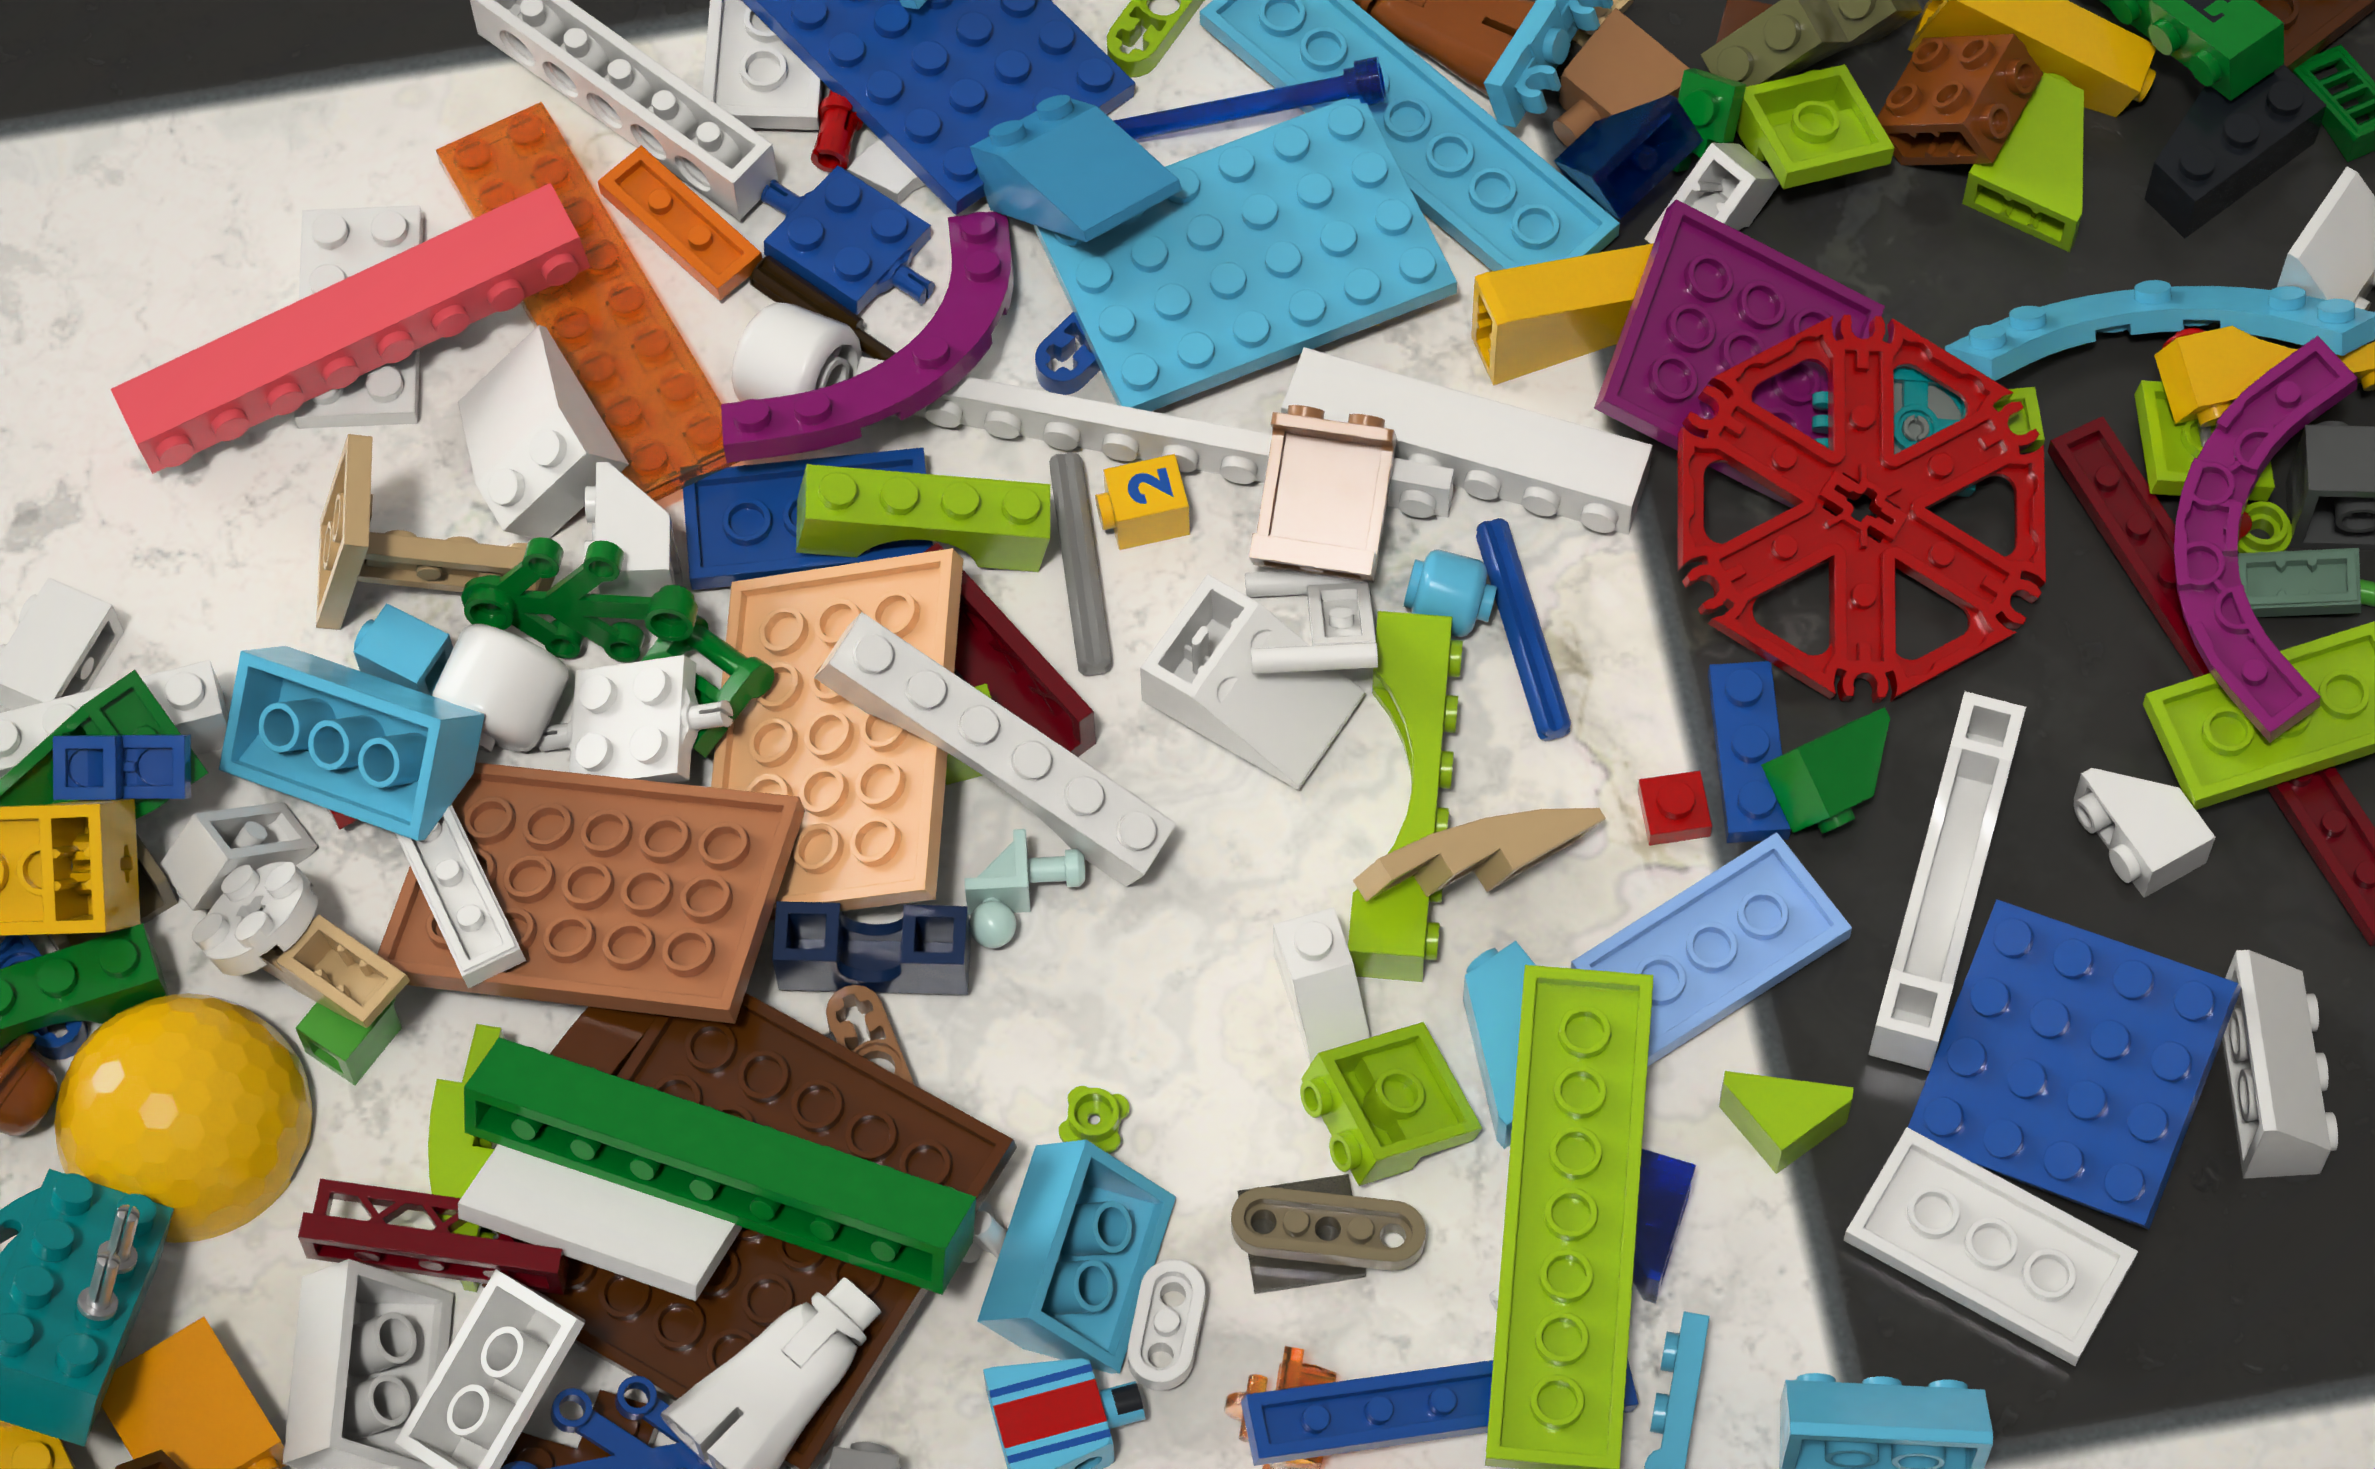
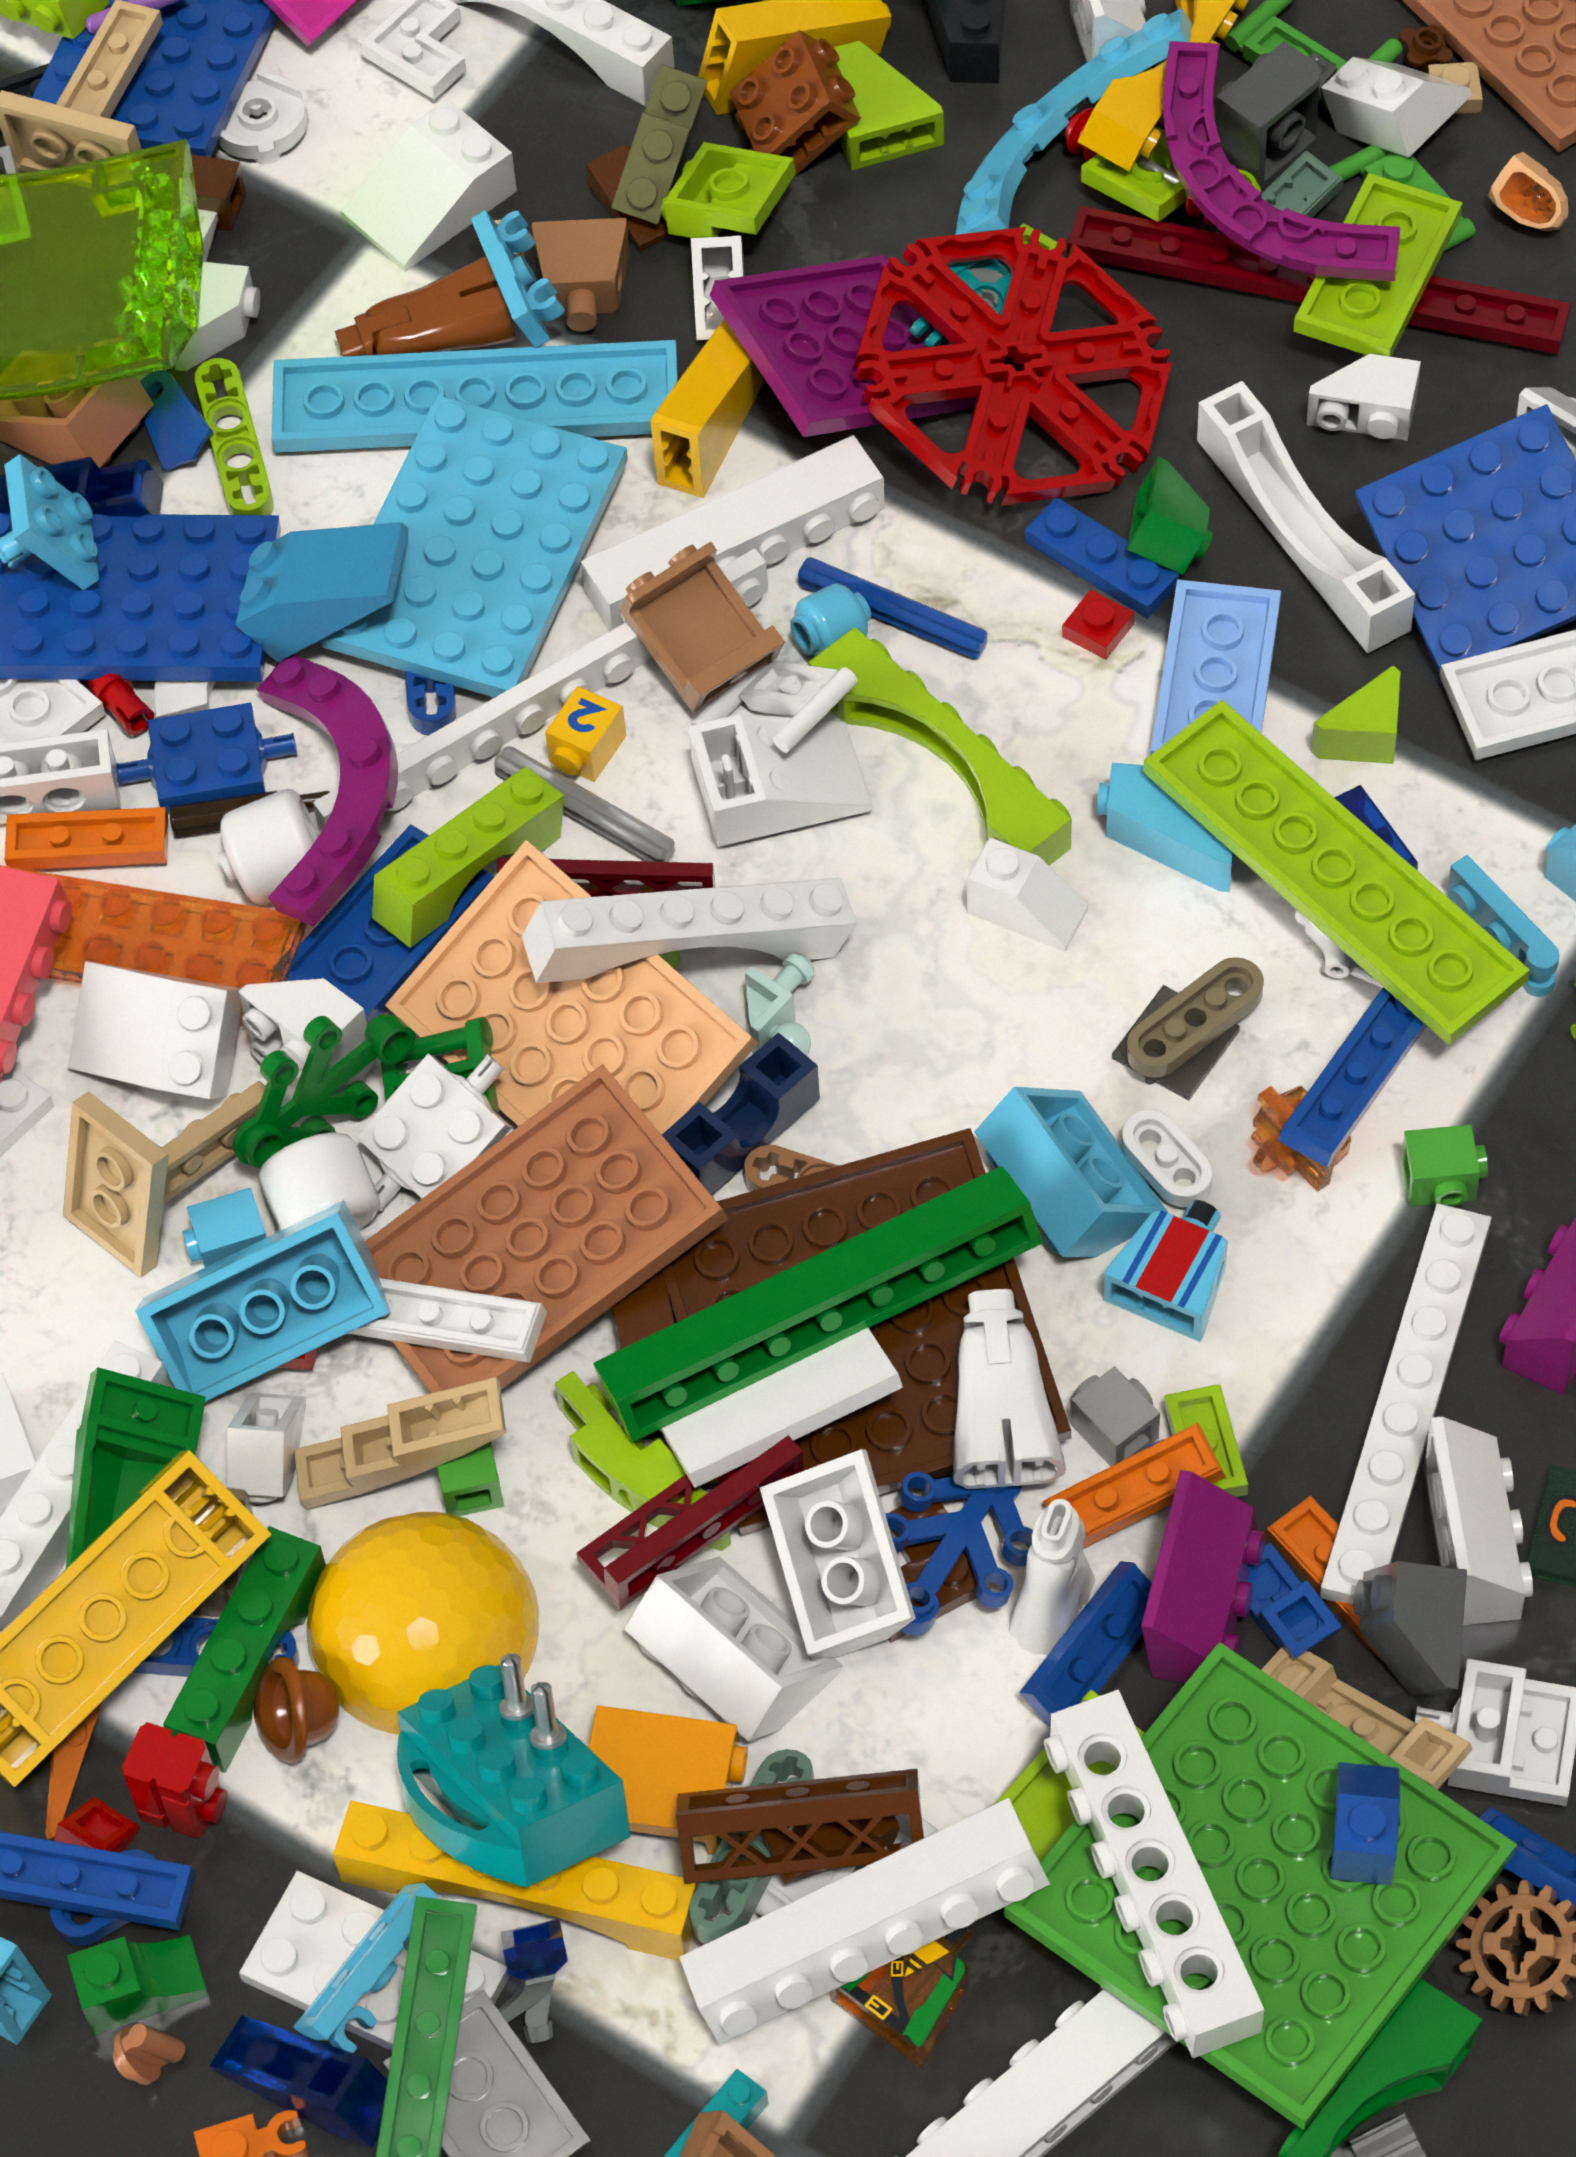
camera: 45 degrees left, 5 degrees down
(122, 767) = (154, 1436): blue slope -> none
(254, 915) = (318, 1442): white plate -> none
(1094, 1101) = (975, 1080): lime plate -> none
(1359, 82) = (430, 387): clear blue piece -> none
(1387, 1103) = (1142, 921): lime plate -> none
(1491, 847) = (1037, 732): tan slope -> none
(1629, 153) = (639, 293): clear blue slope -> none
(1712, 106) = (657, 233): green plate -> none

